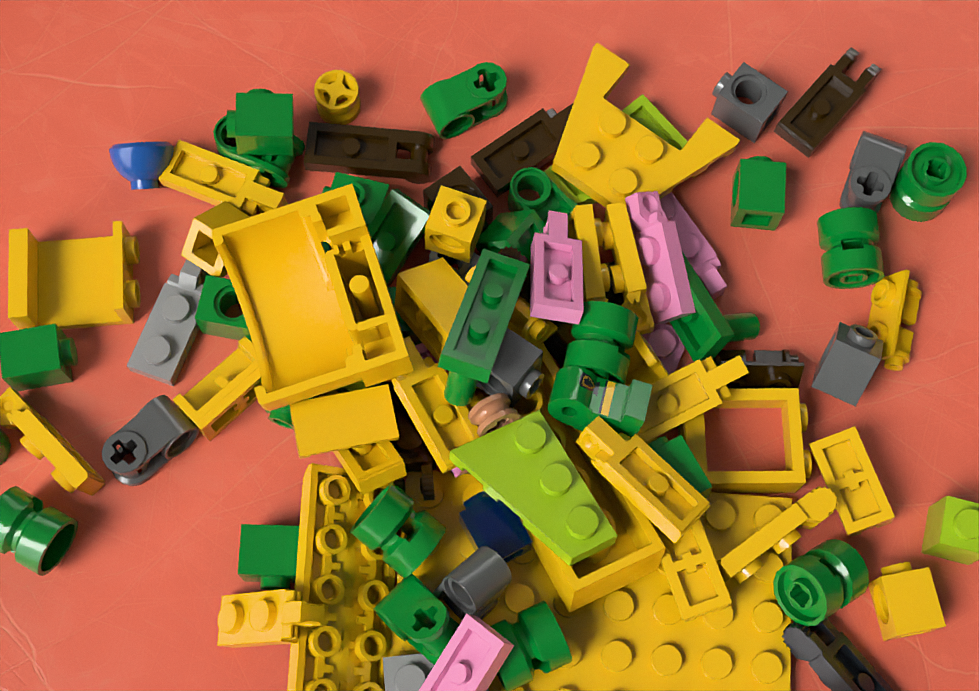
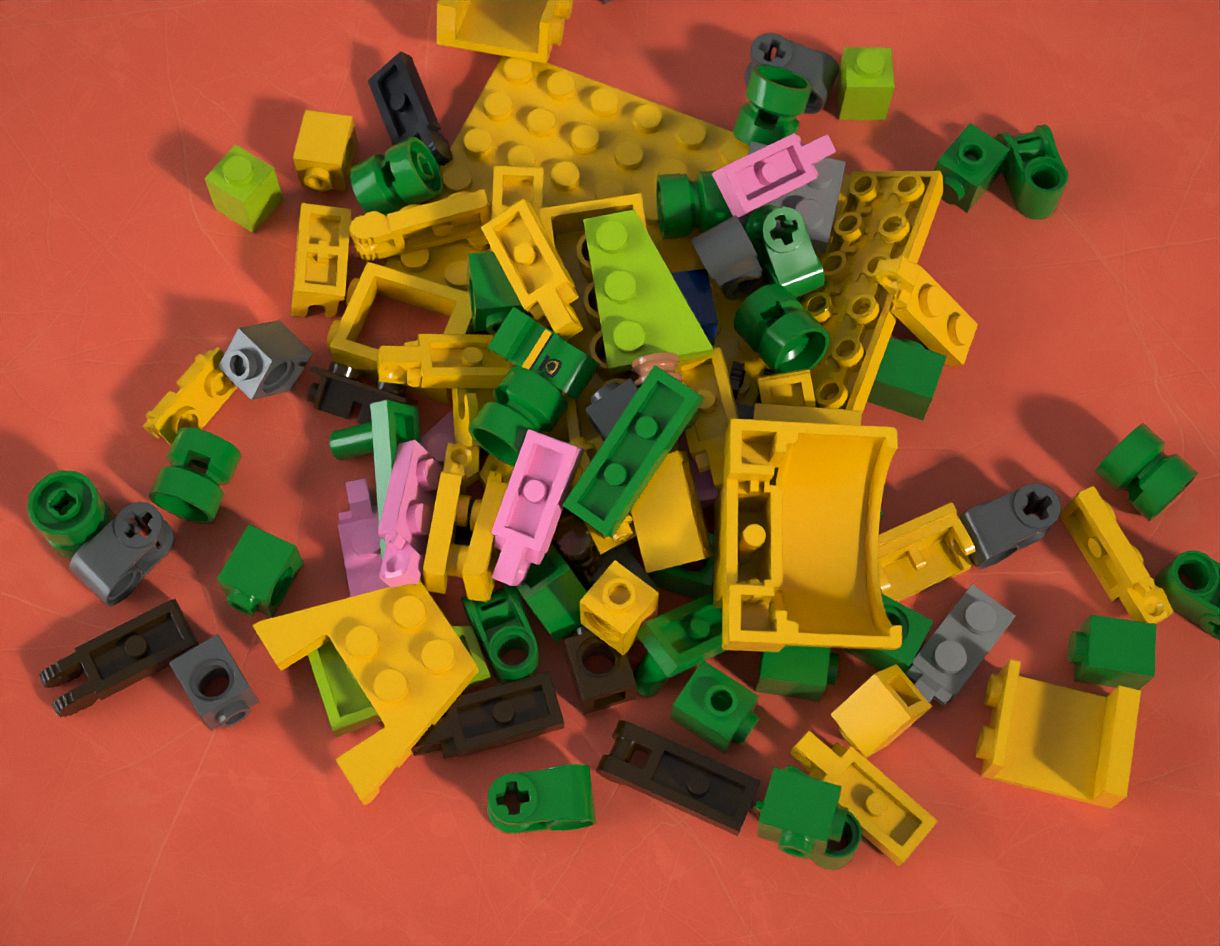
camera: 160 degrees left, 5 degrees down
(141, 162) = (951, 854): blue brick -> none
(333, 87) = (699, 850): yellow wheel -> none

